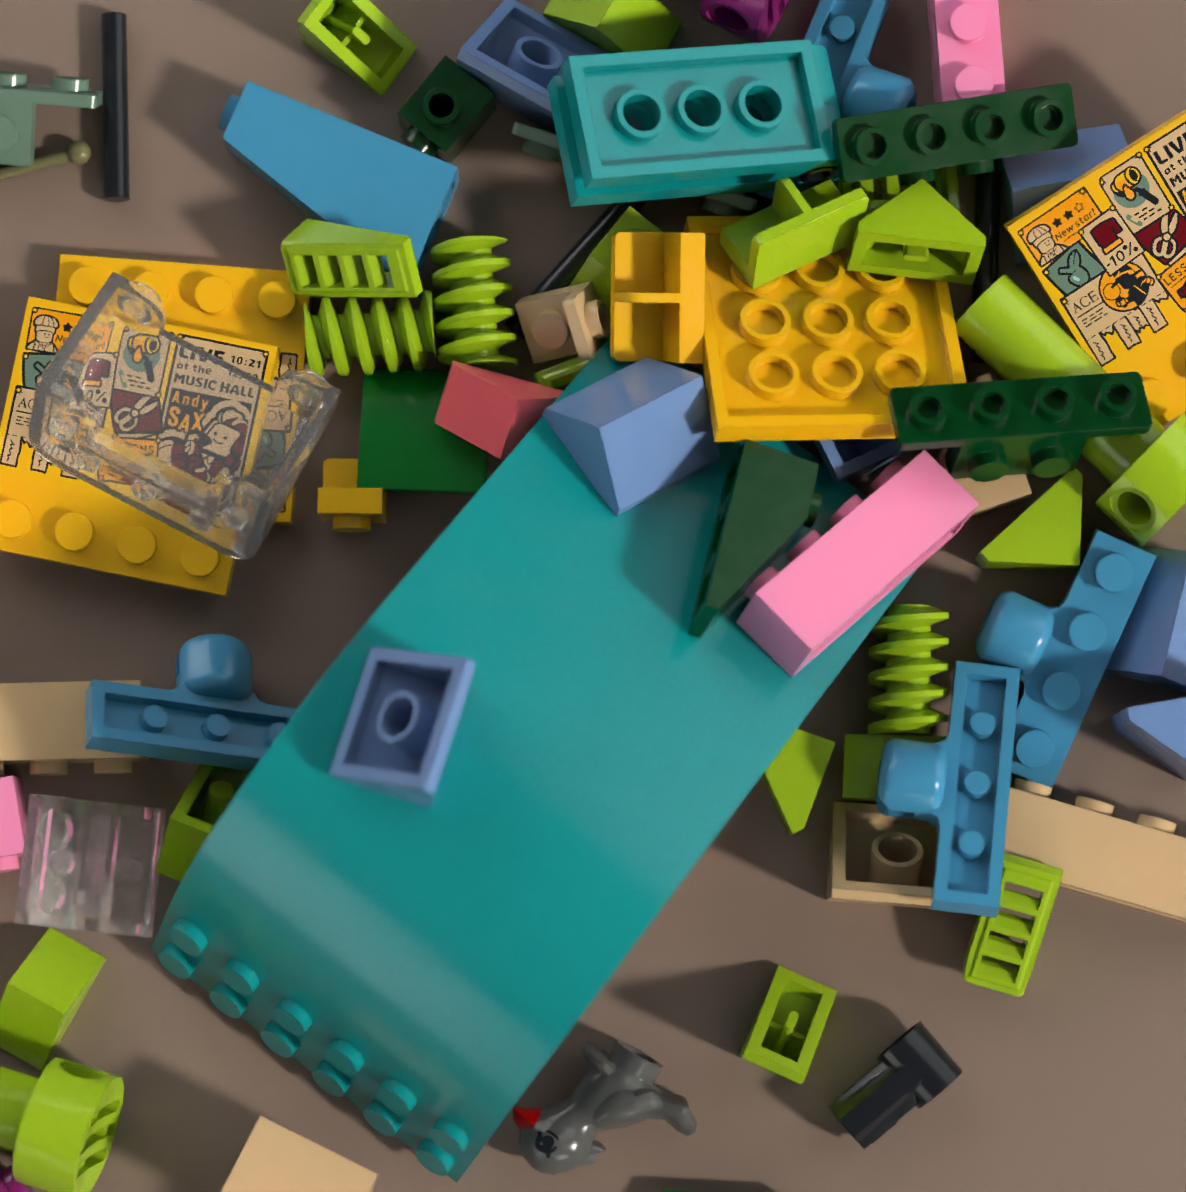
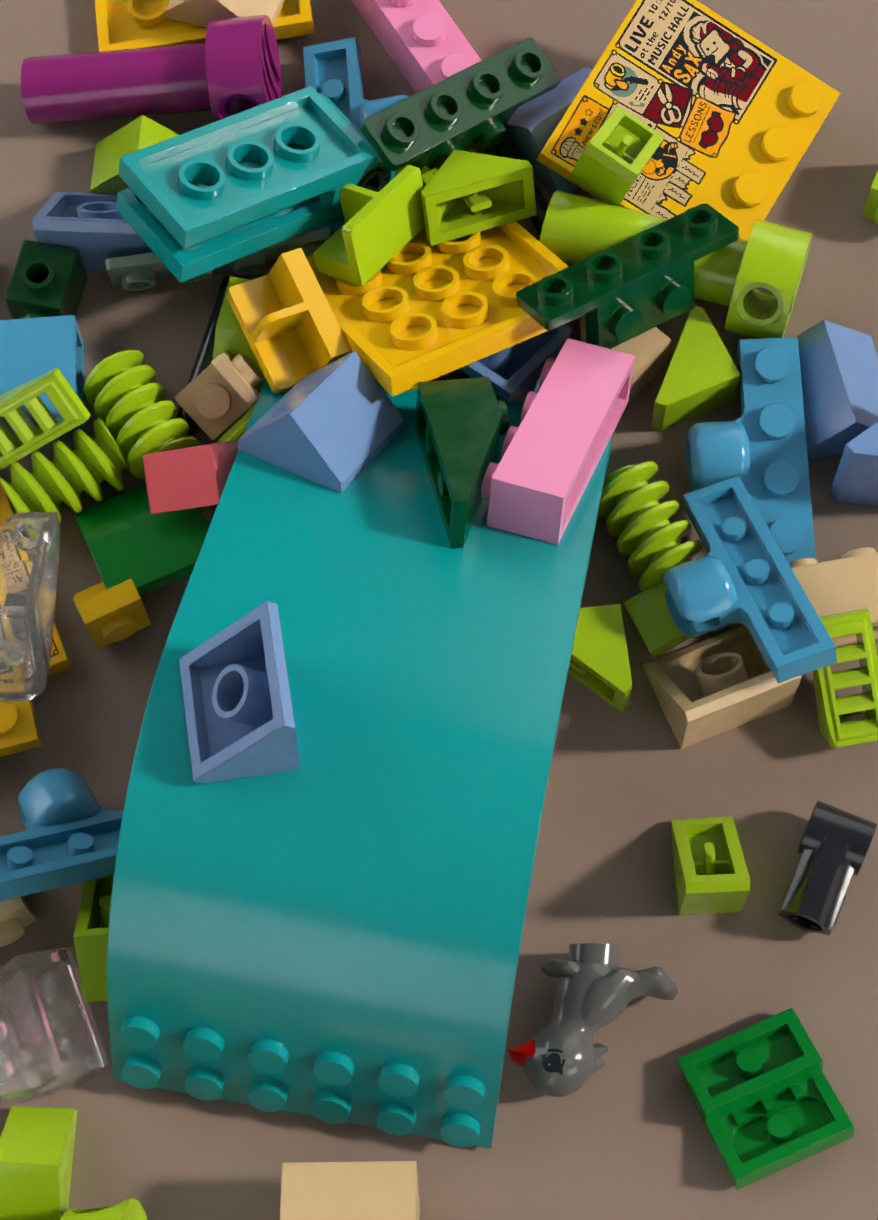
camera: 25 degrees left, 15 degrees down
(1083, 273) = (616, 156): none -> lime slope

